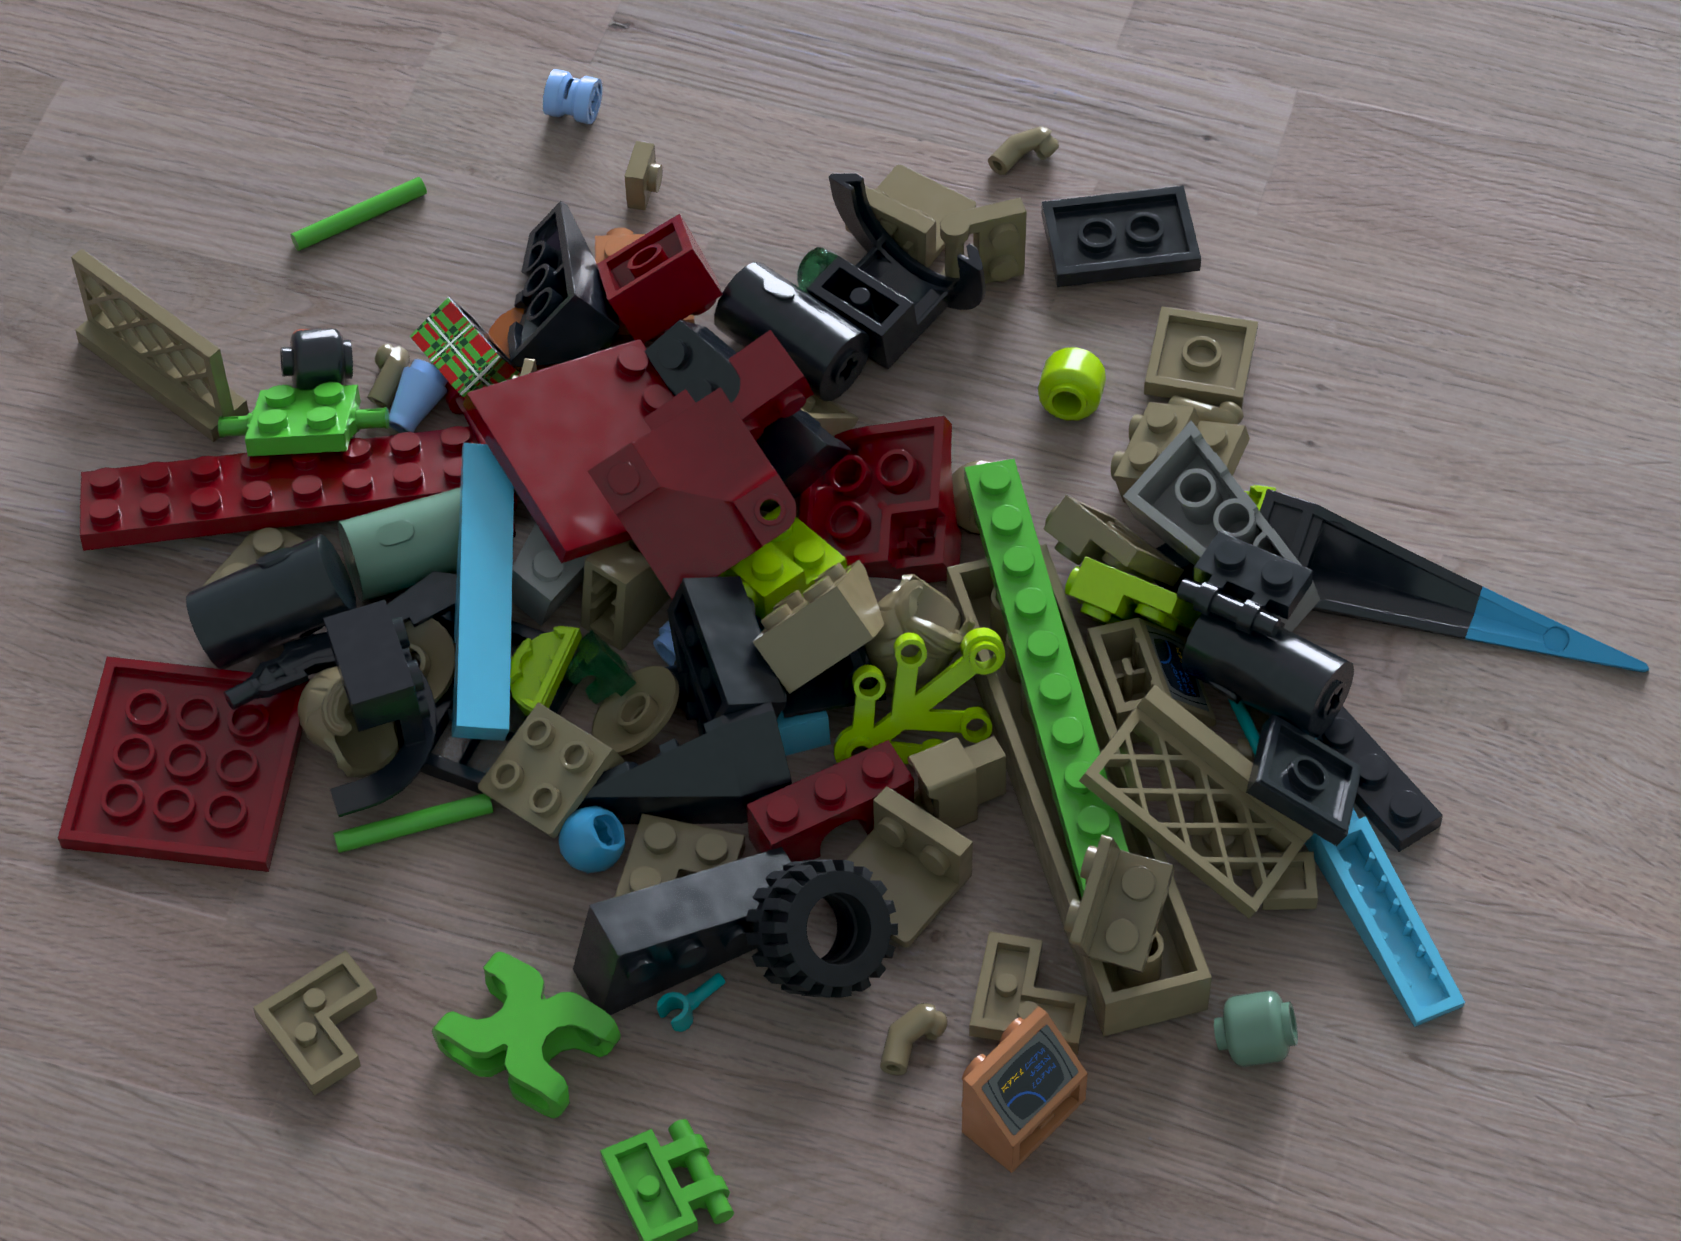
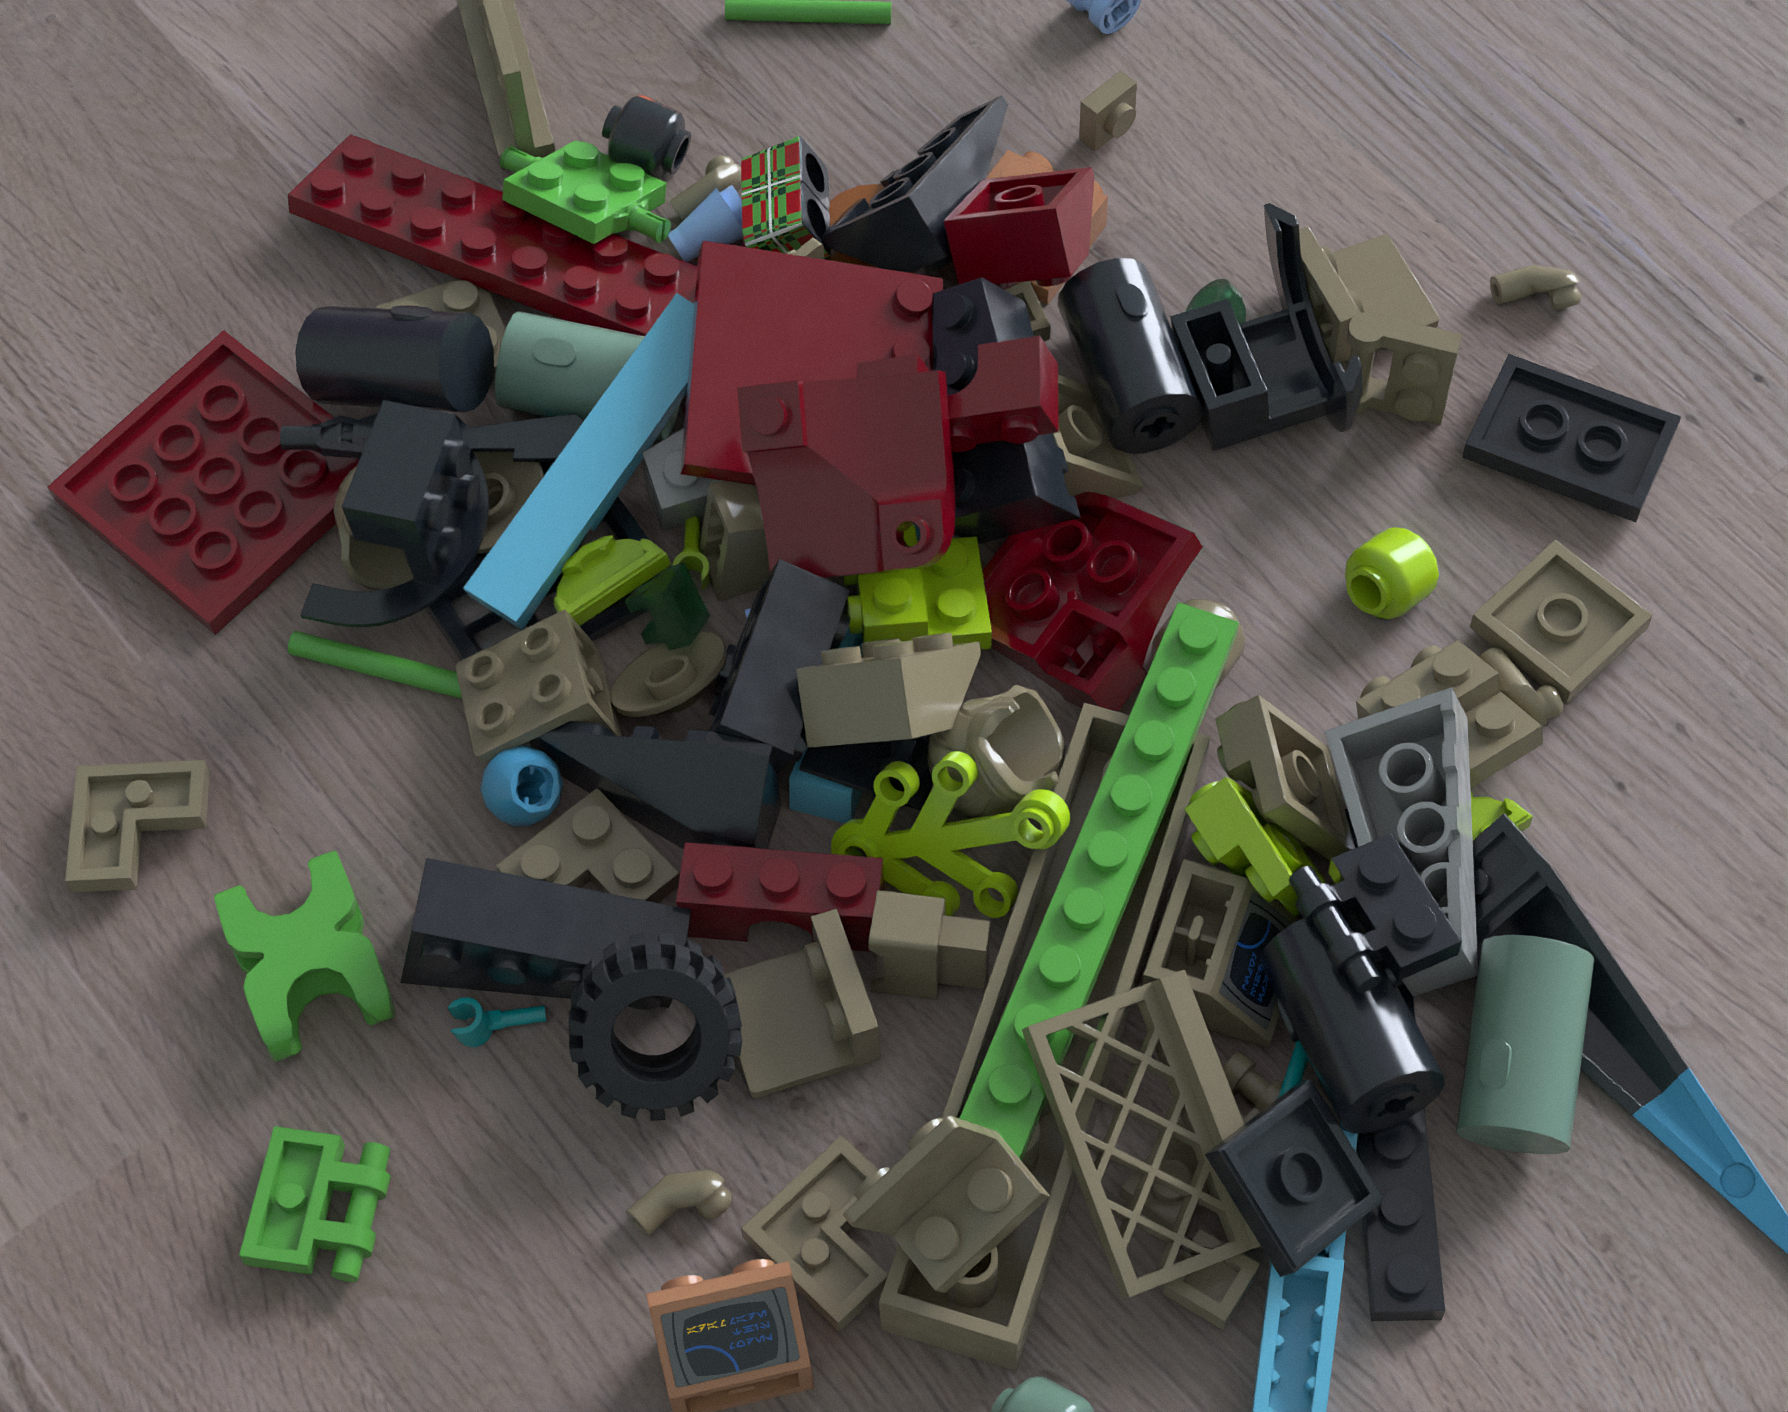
camera: 35 degrees right, 5 degrees up
(585, 627) = (691, 553): none -> lime hand
(1380, 624) = (1525, 1044): none -> sand green piece

